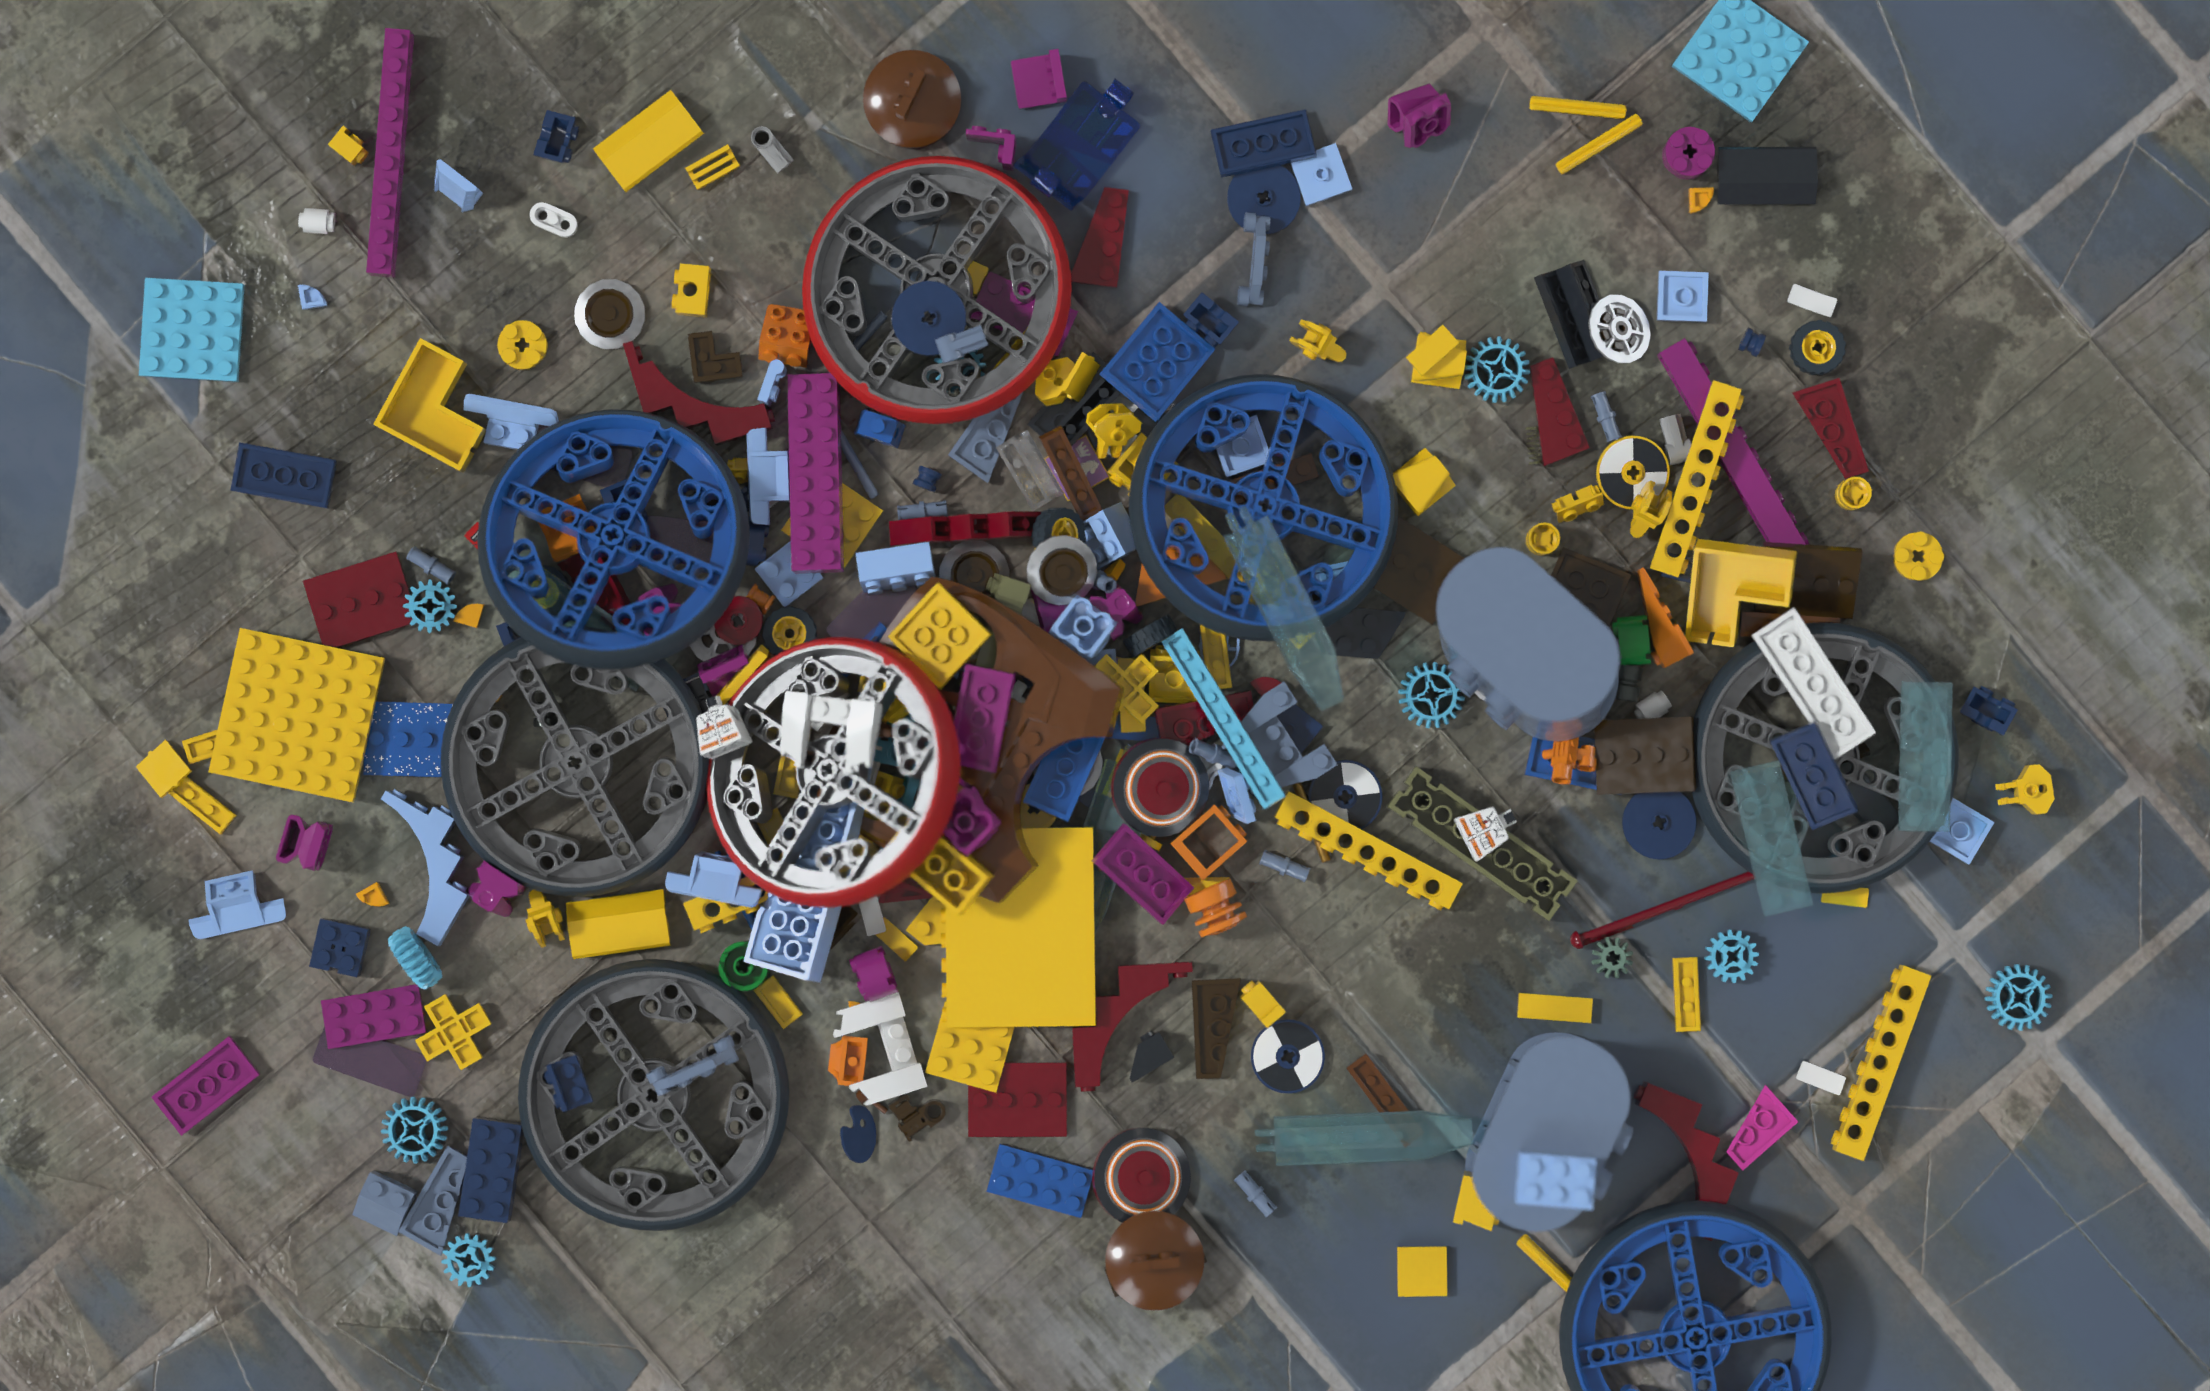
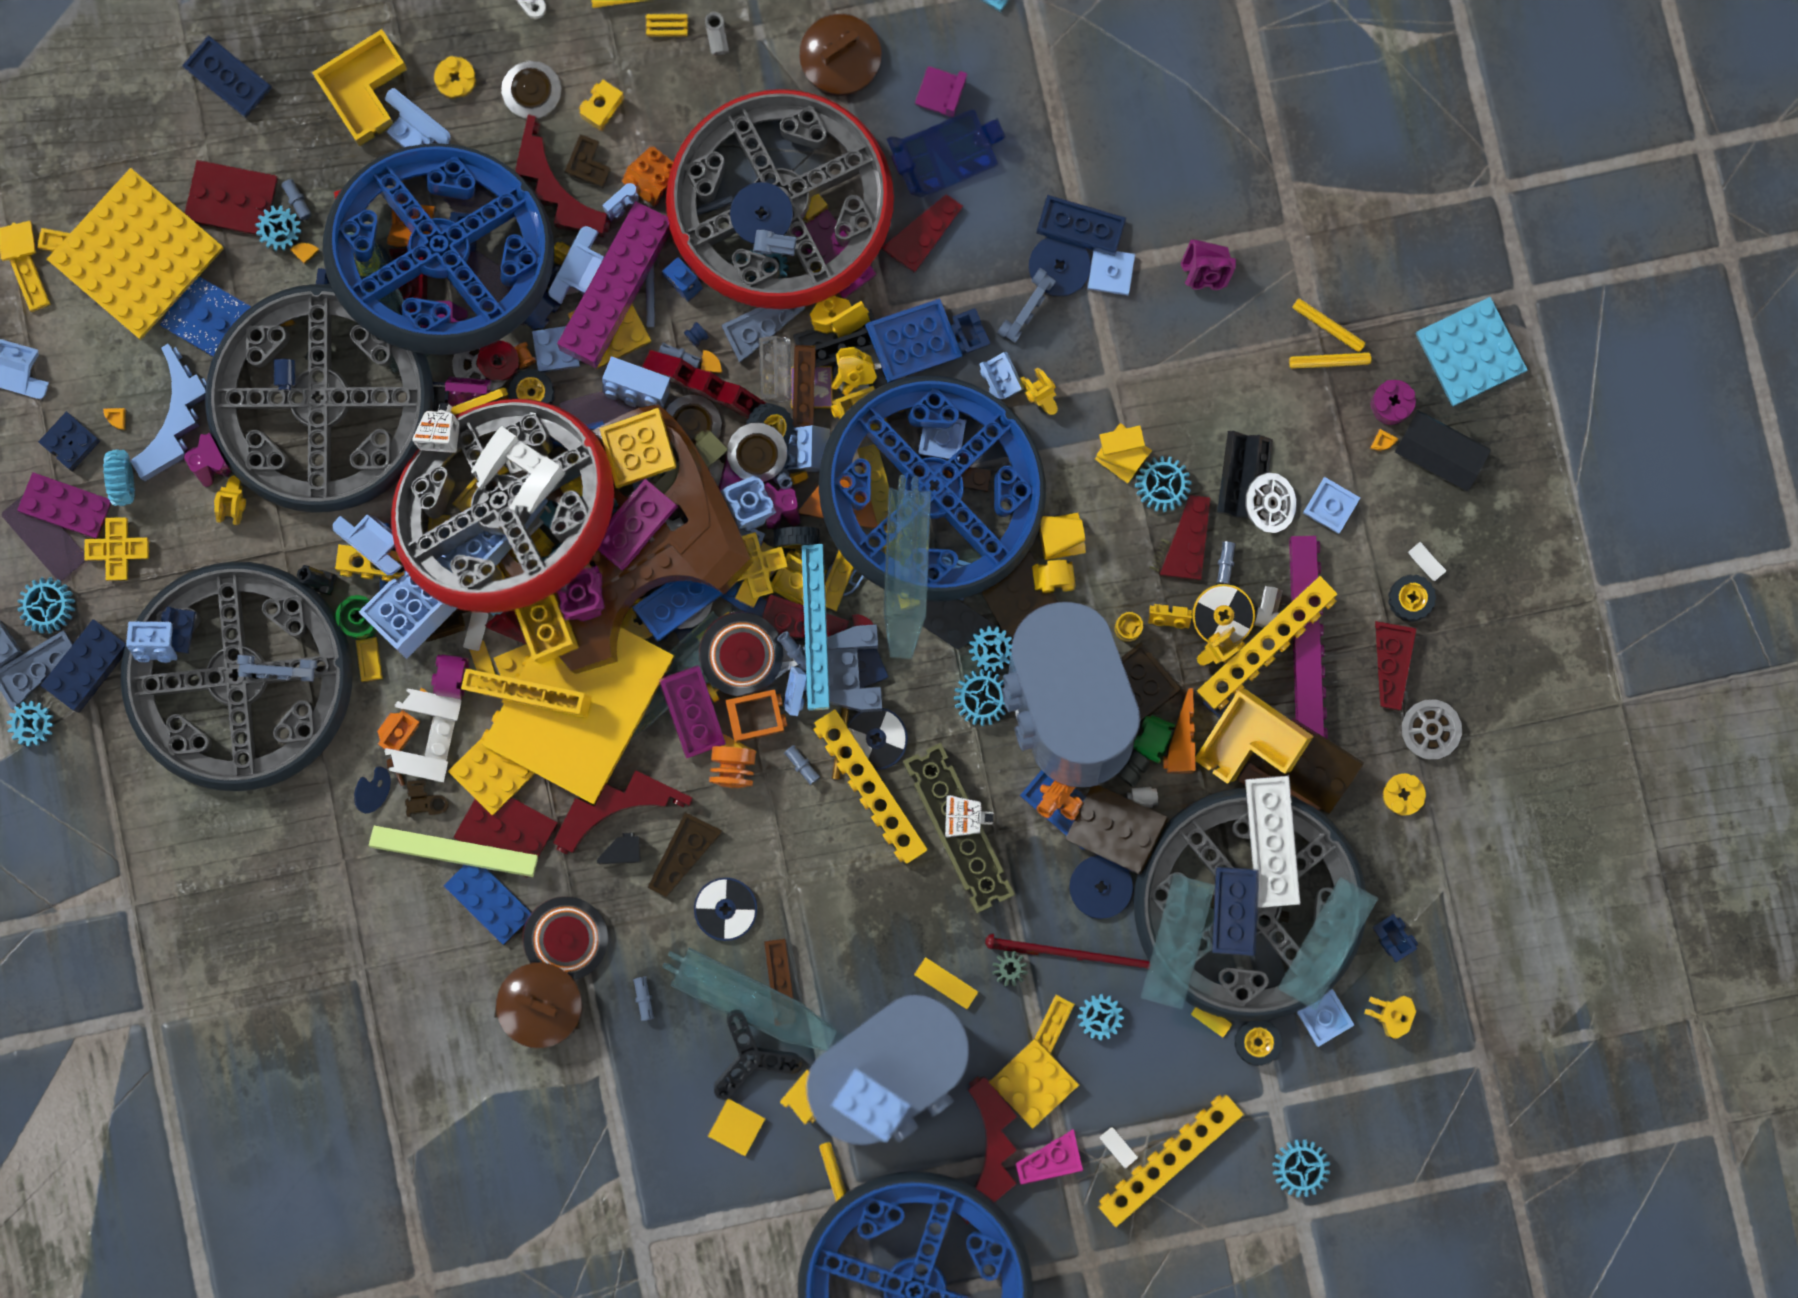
camera: 20 degrees right, 5 degrees down
(304, 842) = (87, 348): magenta piece -> none
(529, 759) = (284, 374): none -> dark blue brick
(550, 1110) = (151, 641): none -> light blue bracket
(617, 924) = (282, 535): yellow slope -> none
(681, 949) = (318, 579): none -> black piece
(958, 500) = (710, 363): none -> light orange tile
(964, 950) = (527, 692): none -> yellow slope
(977, 1151) = (453, 851): none -> yellowish green tile
(1003, 137) = (889, 115): magenta bracket -> none
(1261, 1003) = (727, 856): yellow hips -> none
(1268, 349) = (1001, 376): none -> light blue bracket
(1392, 1186) = (760, 1058): none -> black piece
(1414, 628) = (985, 655): none -> medium azure gear
(1437, 527) = (1054, 575): none -> yellow cylinder
(1700, 1060) = (1033, 1083): none -> yellow plate
(1752, 342) = (1365, 567): dark blue wheel -> none
(1853, 493) = (1380, 720): yellow wheel -> none
(1910, 473) = (1431, 729): none -> flat silver piece
(1918, 899) = (1266, 1051): none -> black wheel

